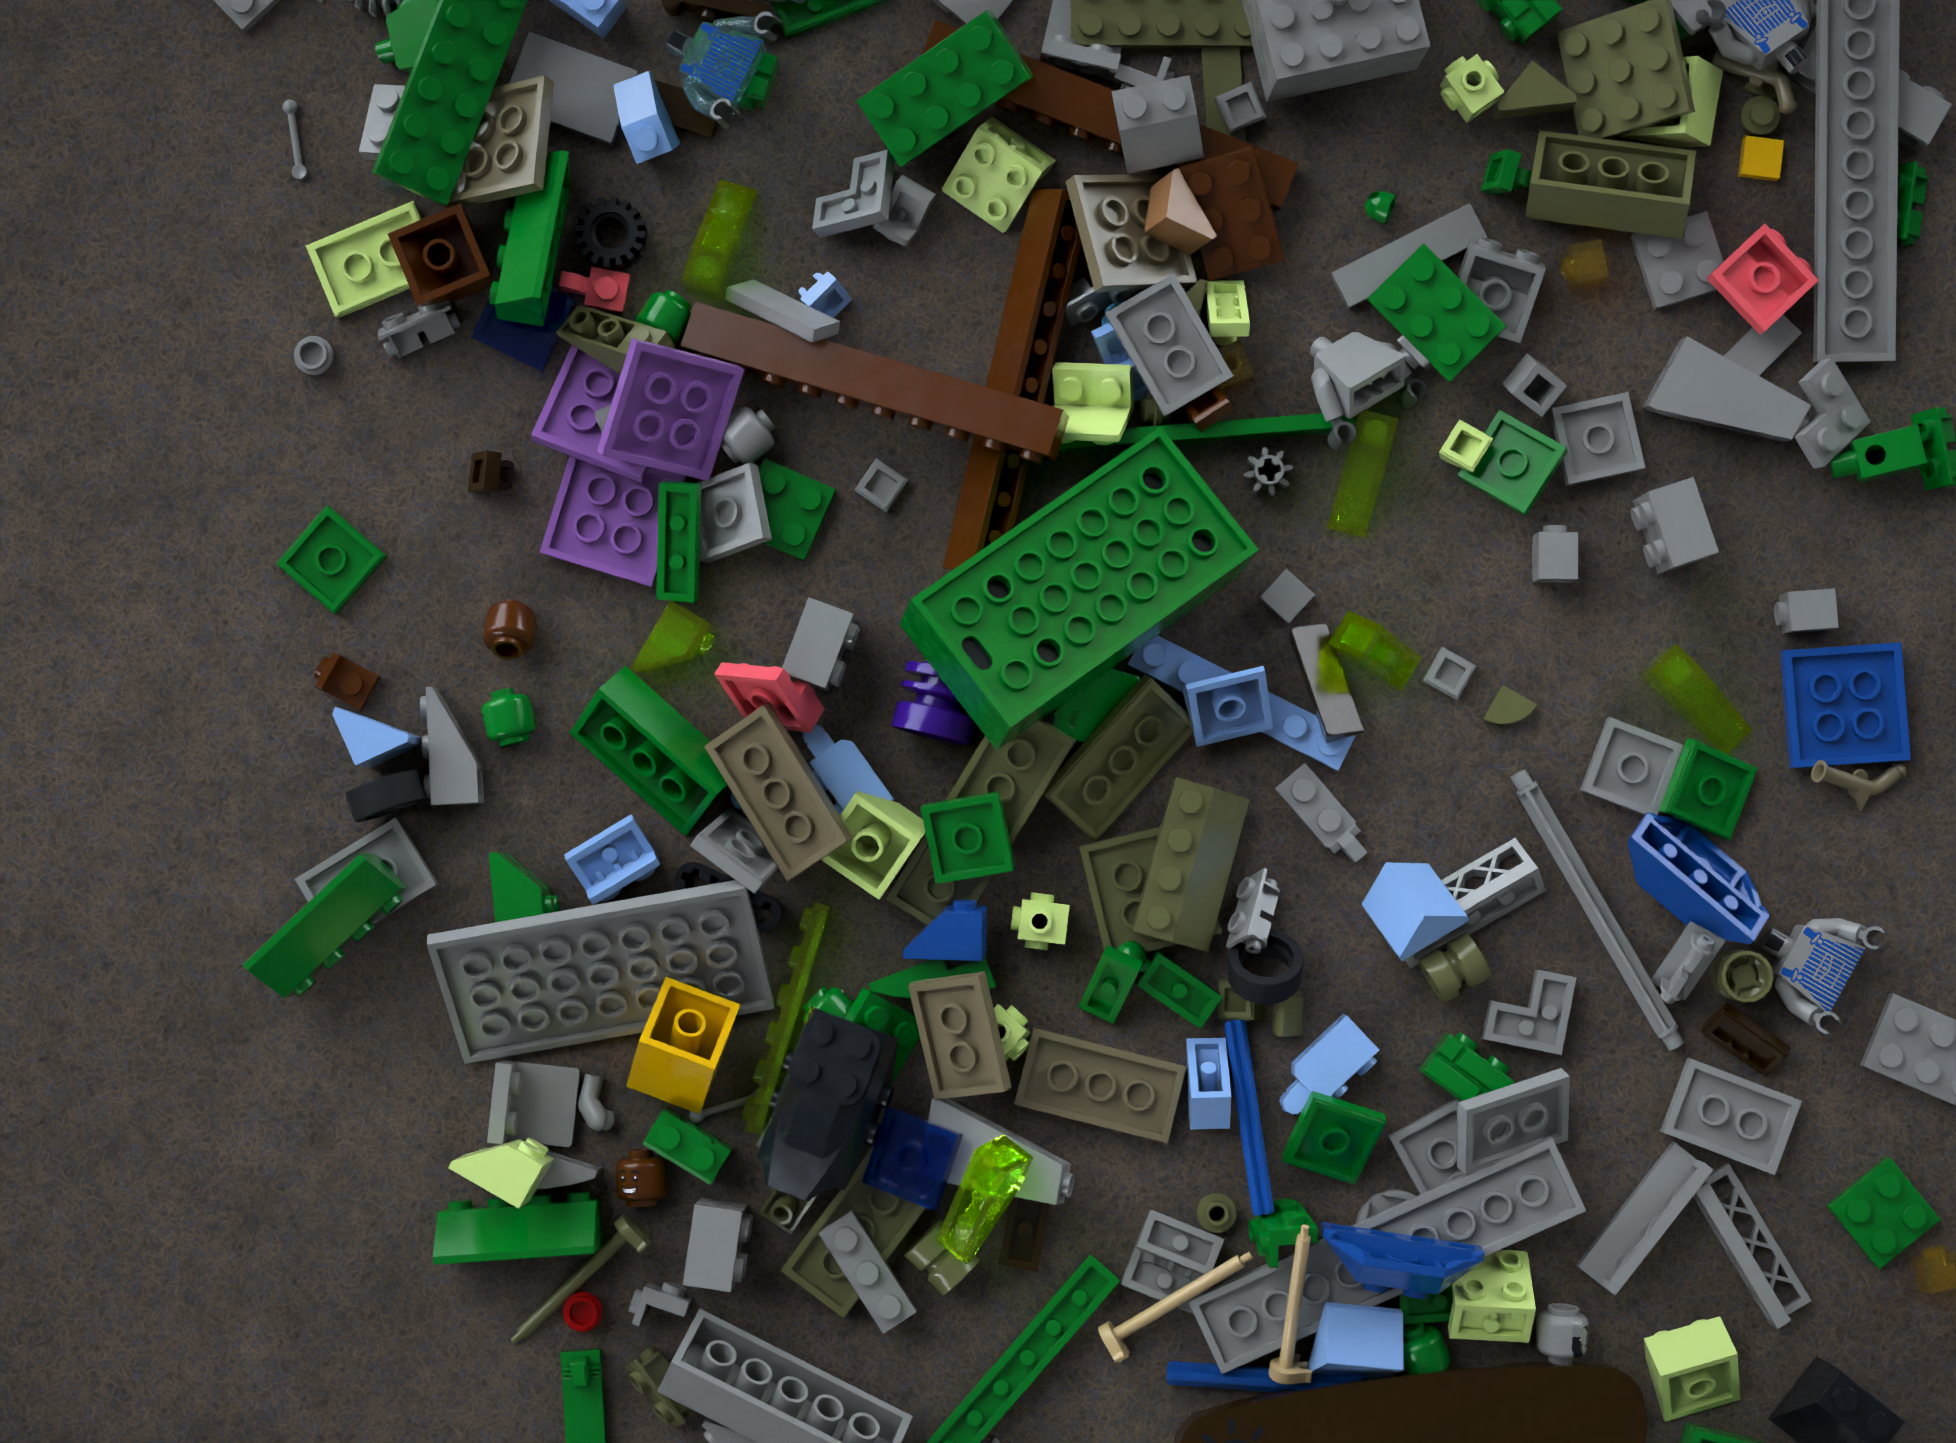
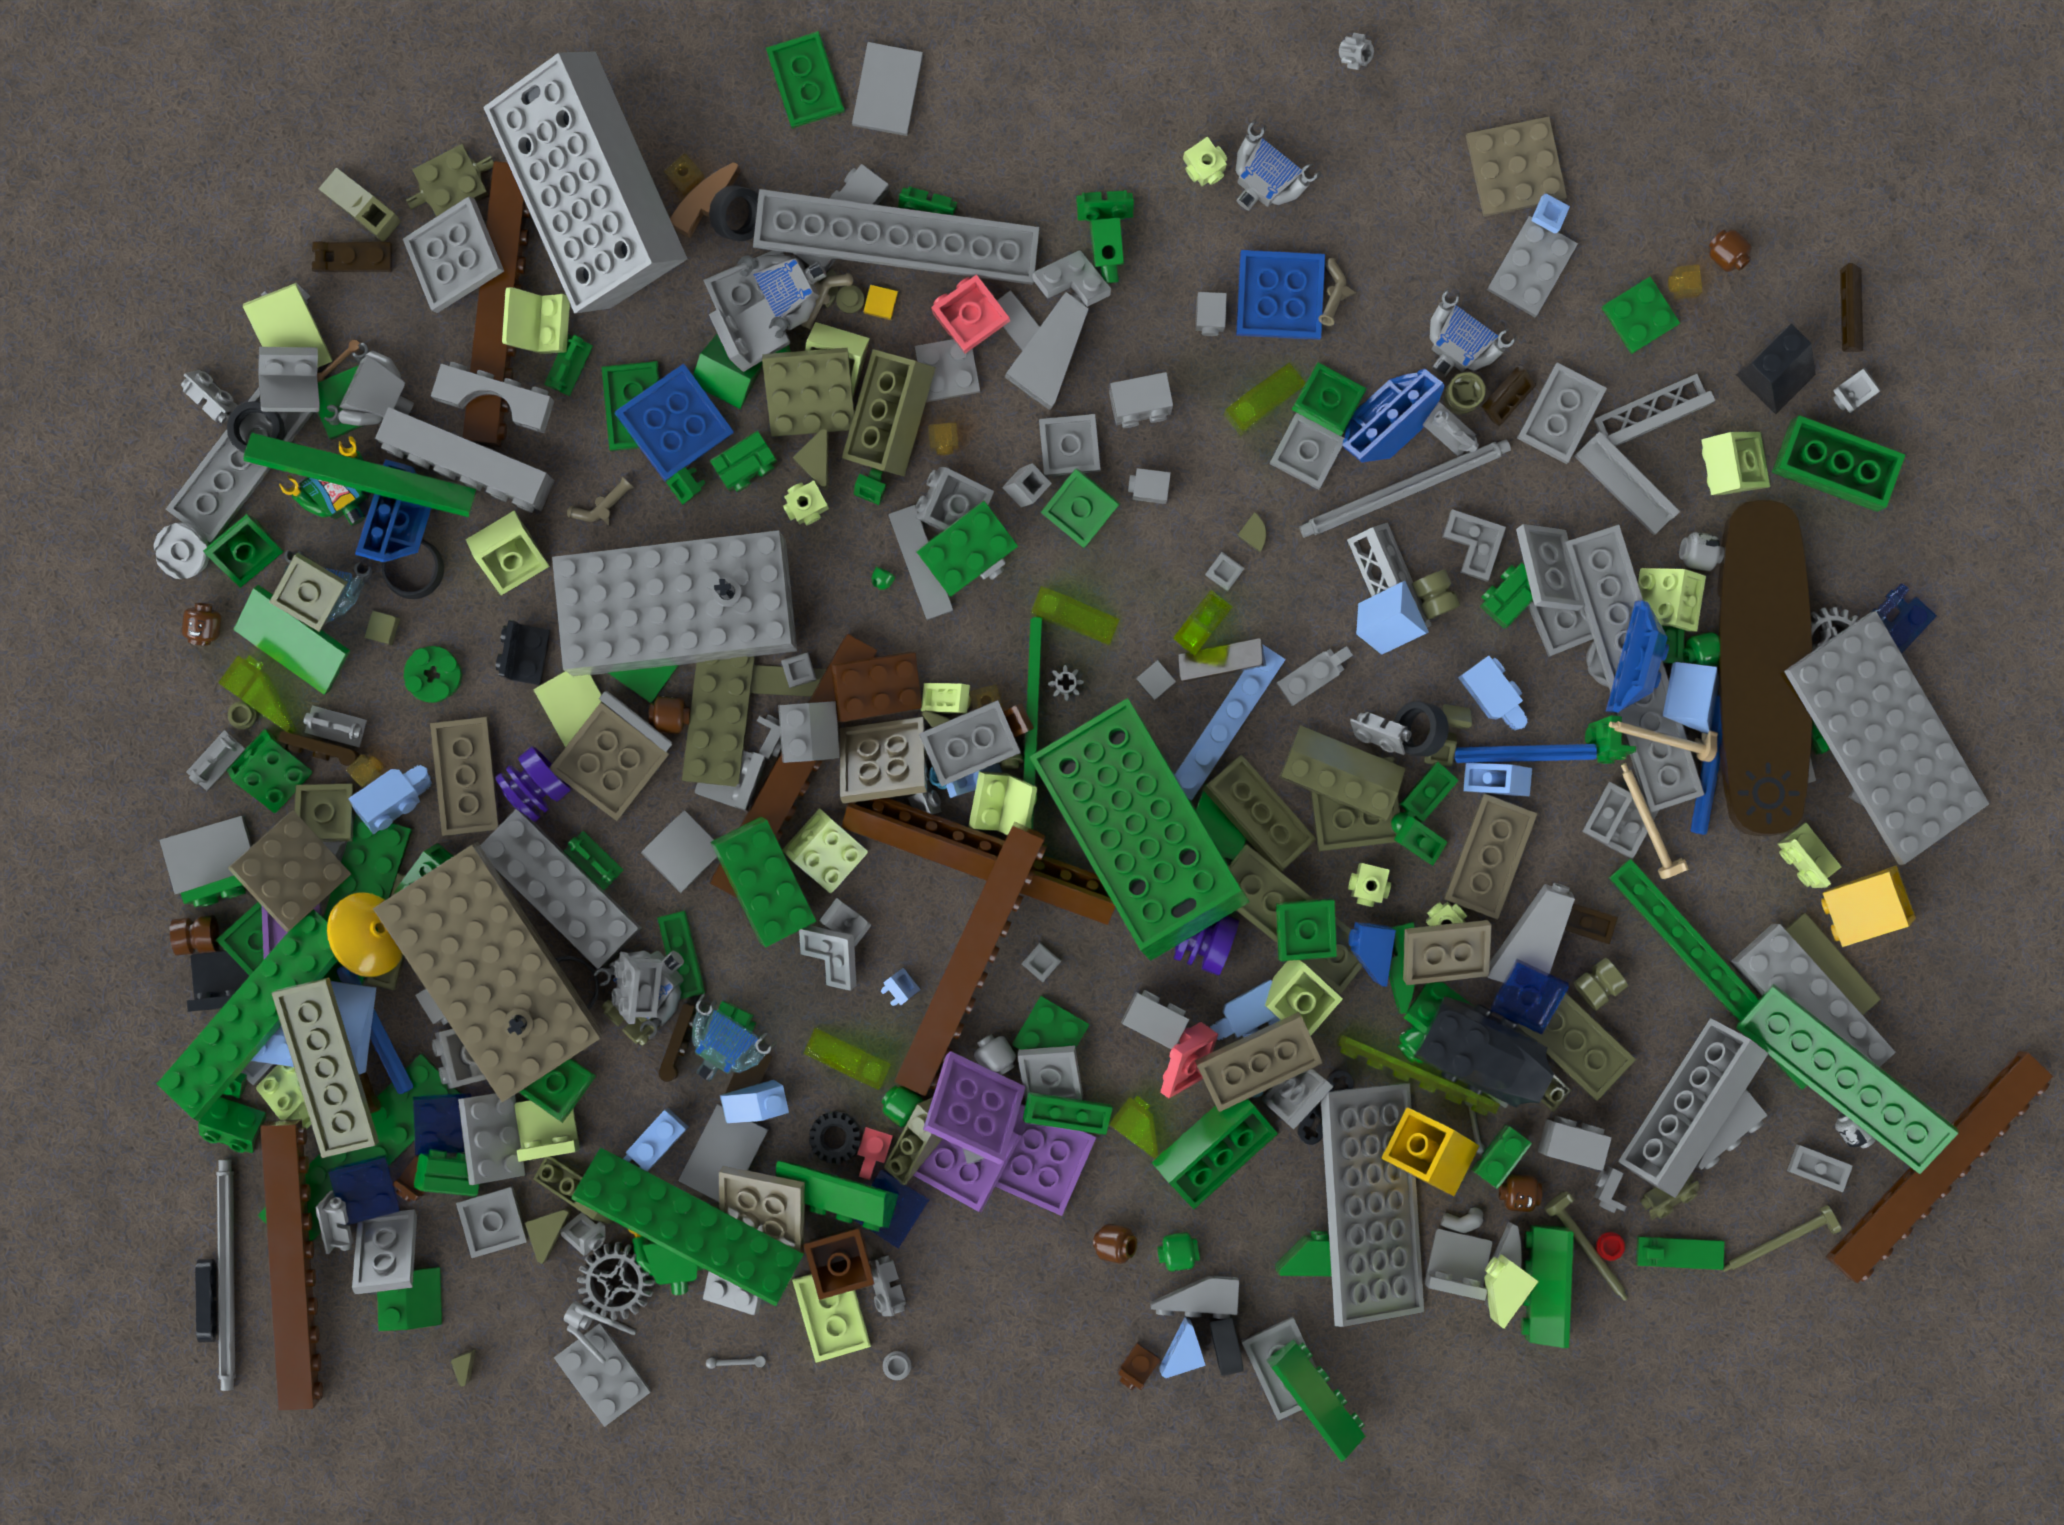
camera: 90 degrees left, 0 degrees up
(331, 560) = (1047, 1368): green tile -> none
(485, 472) = (999, 1248): dark brown tile -> none
(613, 860) = (1290, 1187): light blue bracket -> none
(782, 310) = (909, 1018): light grey tile -> none
(867, 1271) = (1605, 1038): light grey plate -> none
(983, 1196) = (1563, 949): clear neon green slope -> none
(1176, 215) = (875, 726): medium nougat slope -> none
(1205, 1206) = (1581, 787): olive plate -> none
(1228, 706) = (1232, 732): light blue slope -> none
(1333, 1137) = (1546, 695): green tile -> none
(1356, 376) = (1005, 611): light grey torso -> none
(1465, 446) = (1064, 539): yellowish green slope -> none

